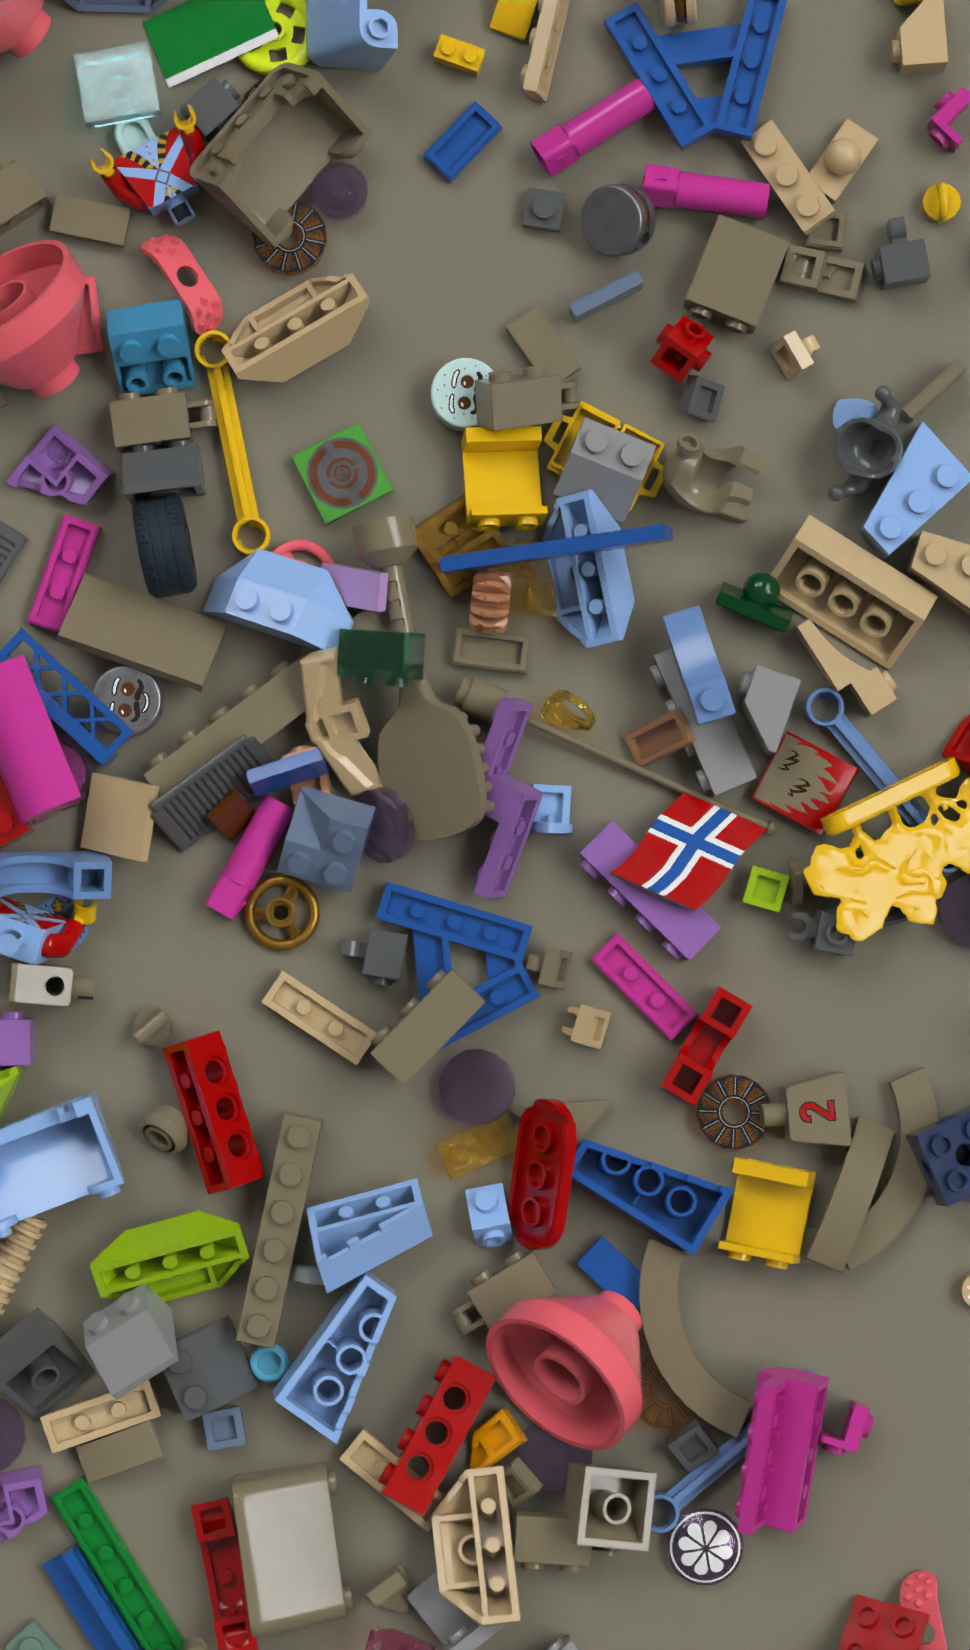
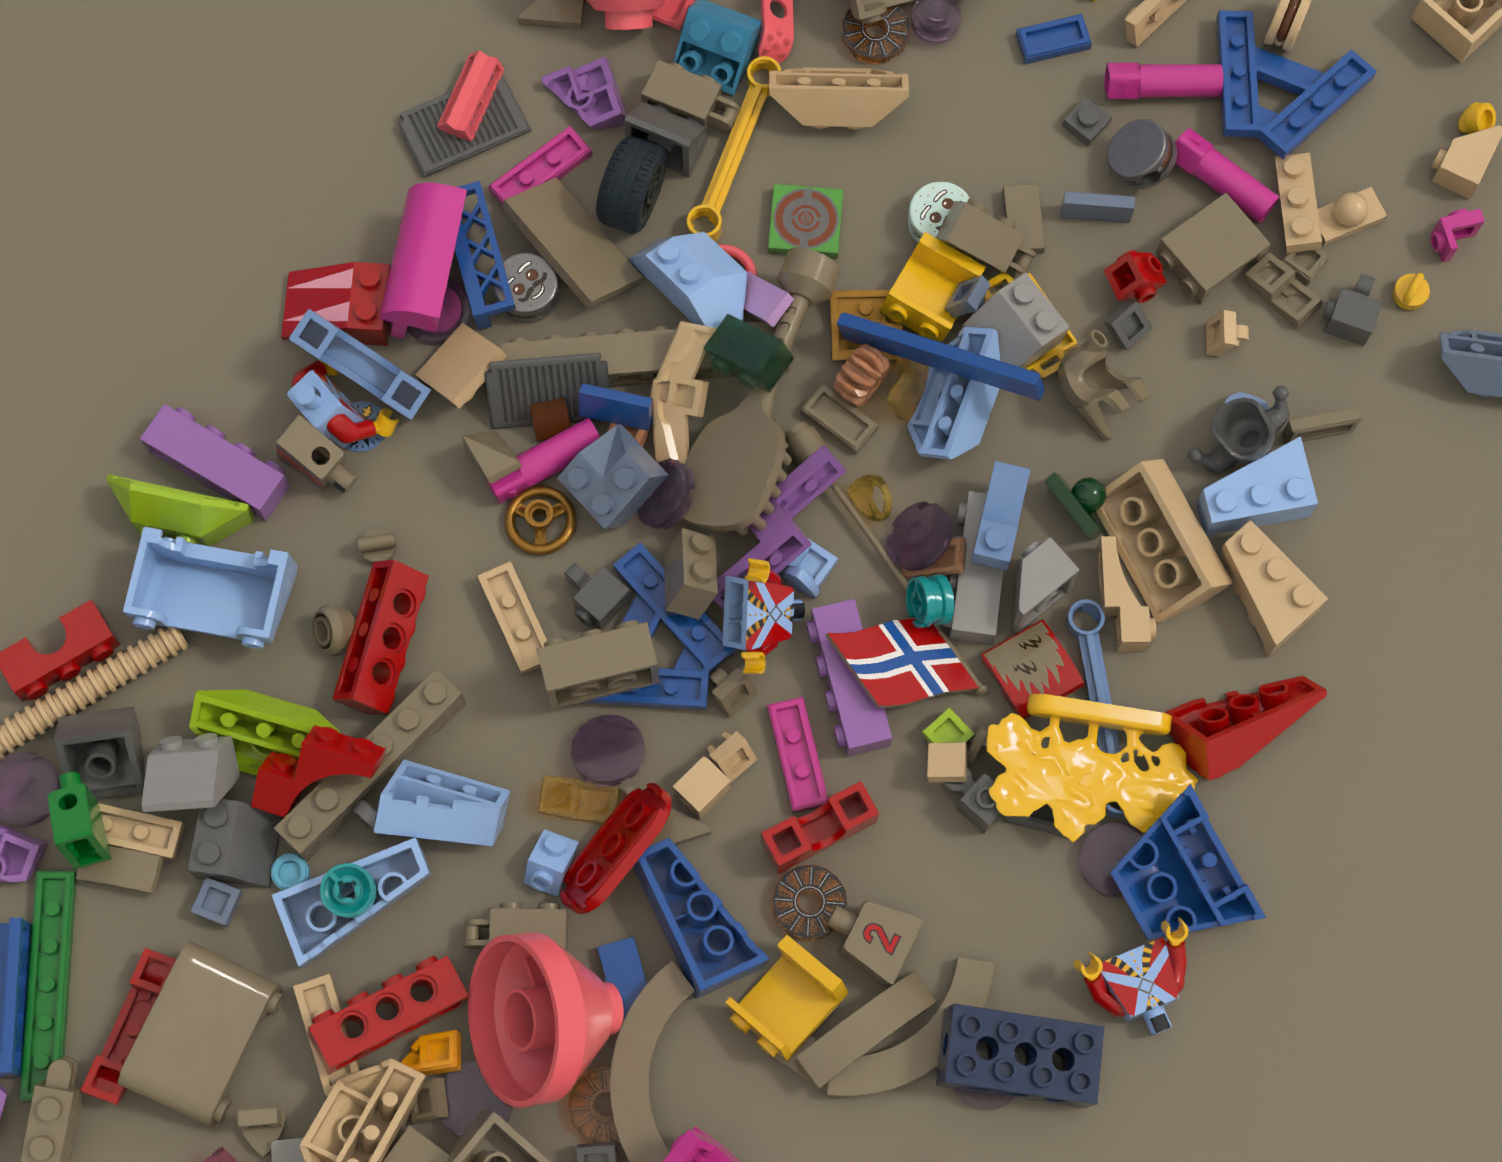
camera: 30 degrees right, 15 degrees down
(76, 1447) = (77, 822): none -> green torso
(204, 885) = (490, 455): none -> dark tan slope
(242, 1257) = (321, 755): none -> red arch
(330, 1346) = (364, 891): none -> teal wheel
(453, 887) = (690, 573): none -> dark tan brick
(537, 890) = (758, 614): none -> torso
(541, 465) = (968, 297): none -> sand blue plate
(580, 1071) = (701, 787): none -> tan panel
(634, 723) = (919, 536): none -> clear purple tile
(680, 781) = (930, 600): none -> teal wheel
(782, 920) = (947, 762): none -> tan tile

